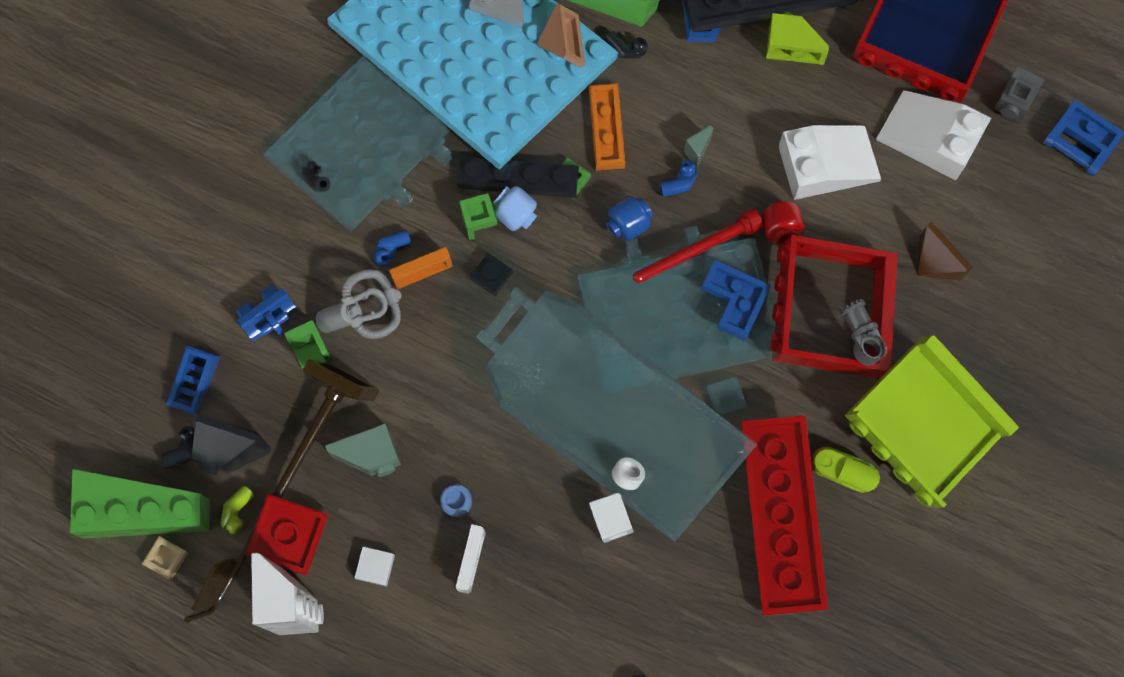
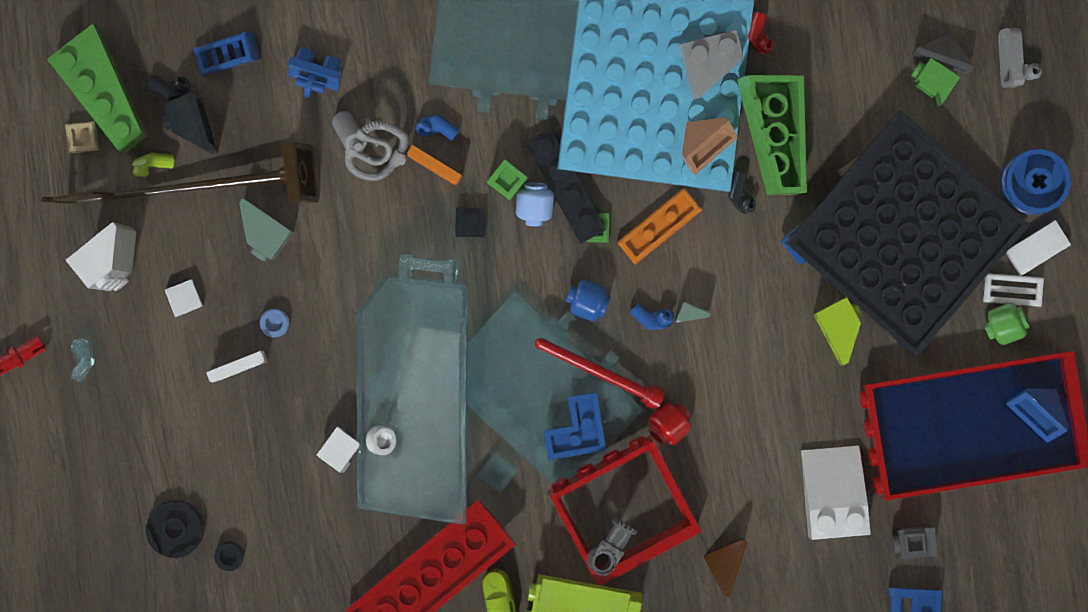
camera: 60 degrees right, 15 degrees up
(287, 534) = (160, 216): red tile -> none
(307, 343) = (312, 124): bright green panel -> none
(310, 175) = (444, 31): black arm -> none
(827, 159) = (753, 425): white slope -> none

